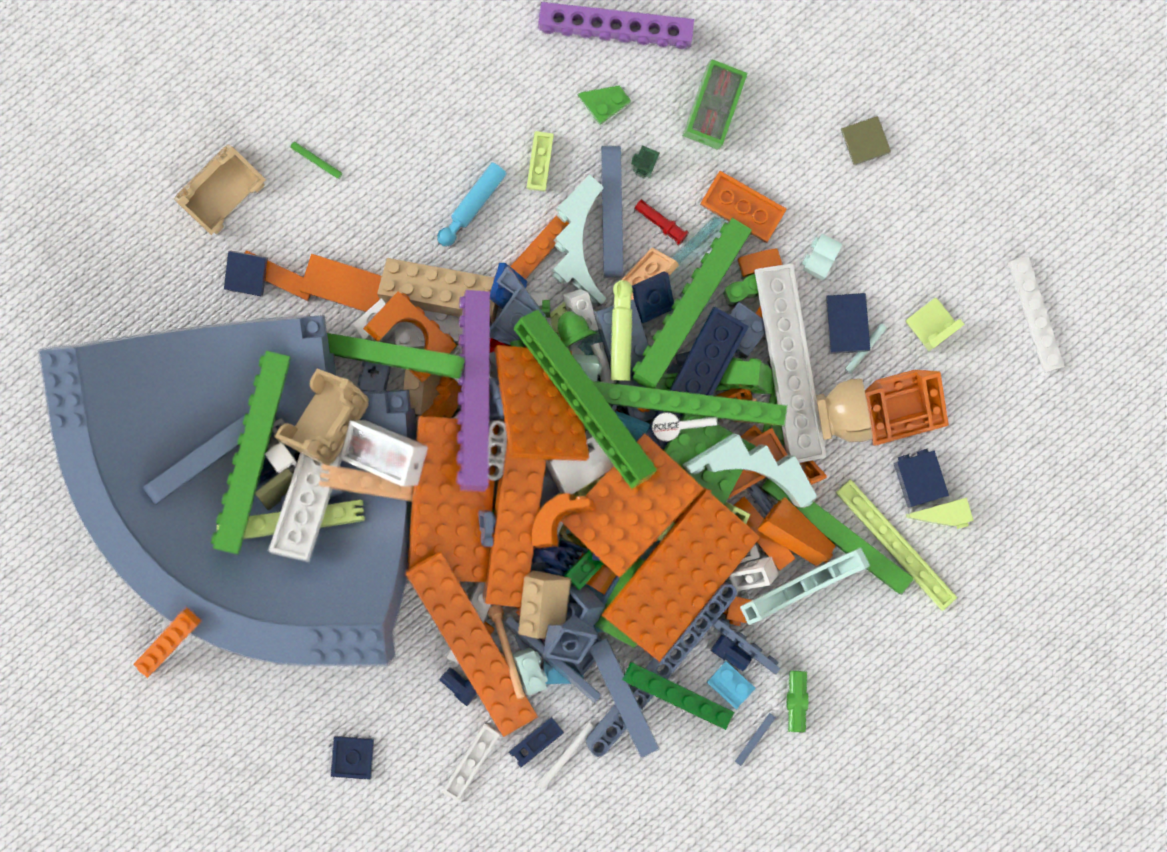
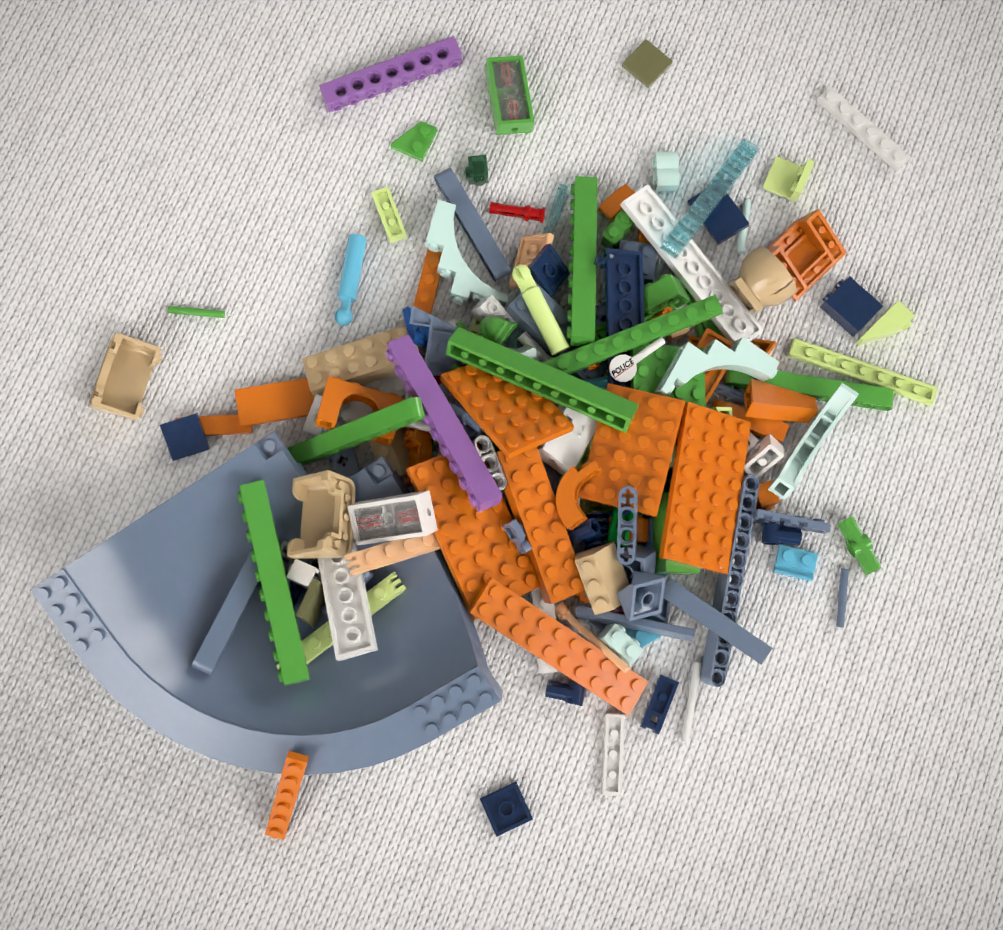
camera: 30 degrees left, 5 degrees down
(591, 573) = (627, 525): none -> sand blue beam
(678, 695) = (758, 594): green plate -> none
(704, 313) = (601, 259): none -> dark blue hand
(735, 200) = (563, 163): orange plate -> none
(845, 306) = (709, 198): none -> clear light blue beam

